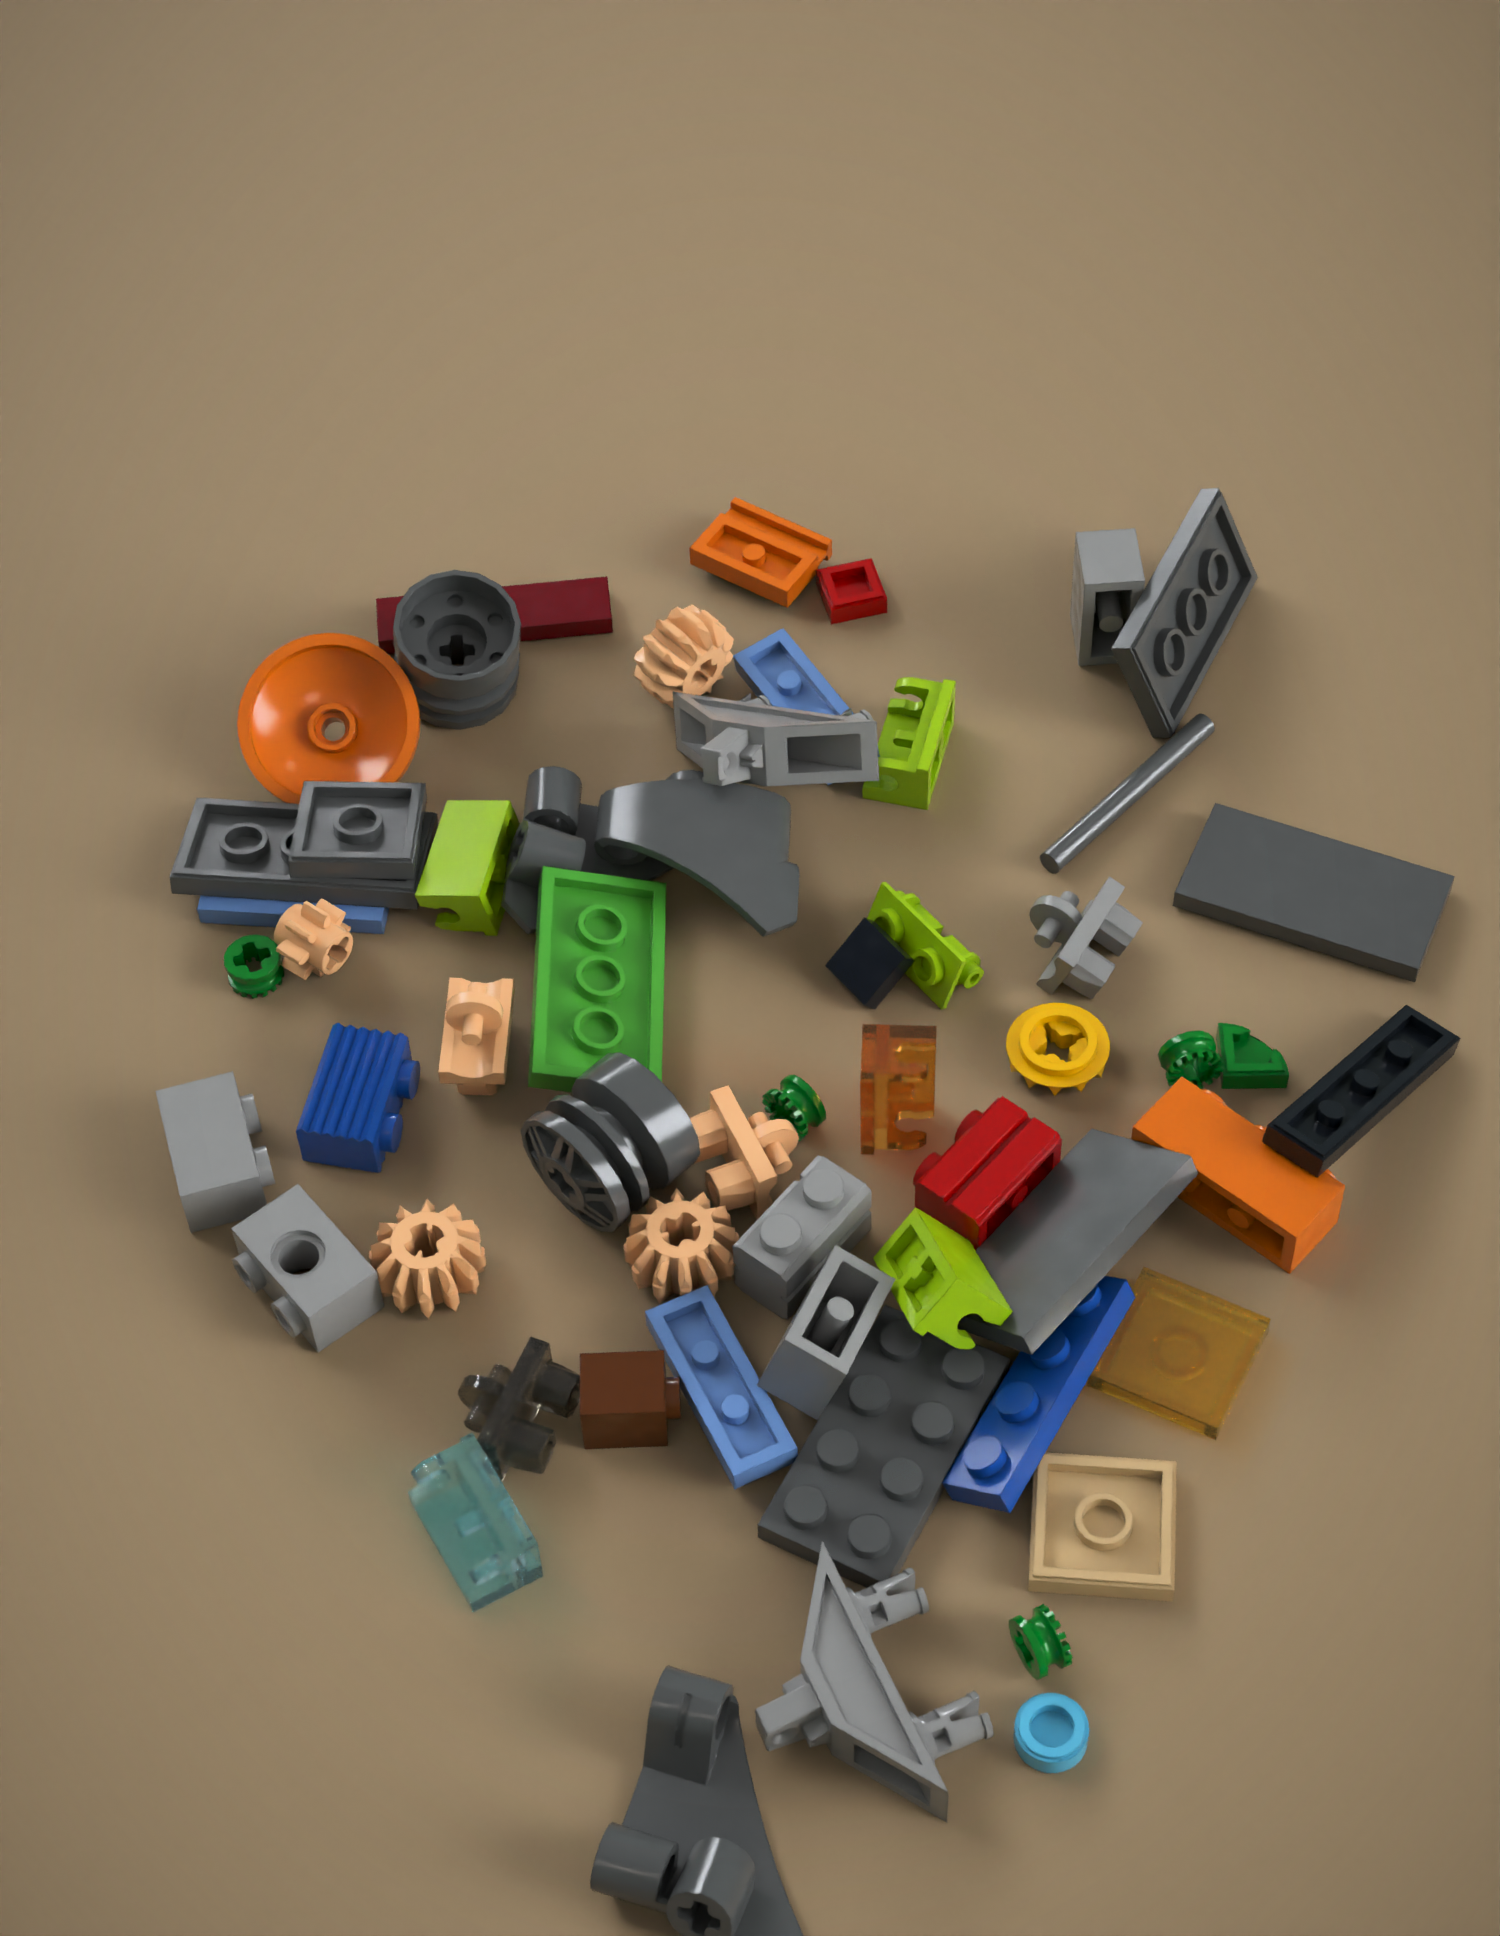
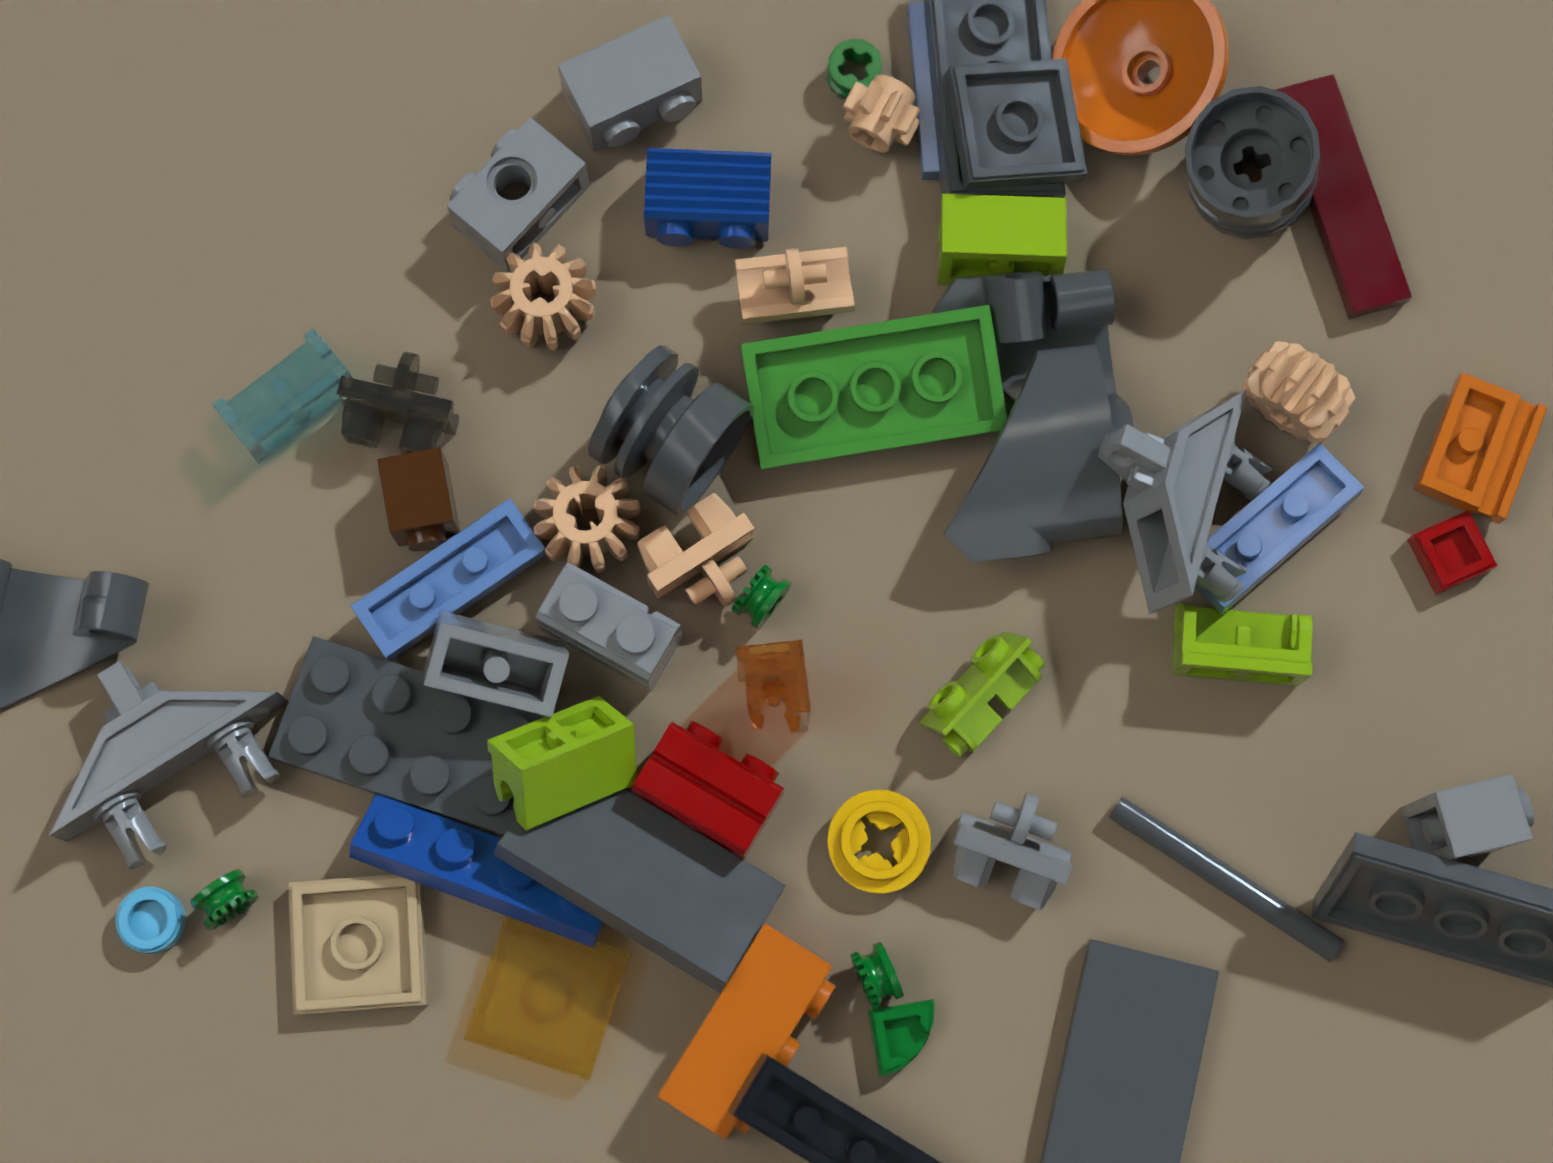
camera: 75 degrees right, 25 degrees up
(869, 963) = (946, 643): black tile -> none

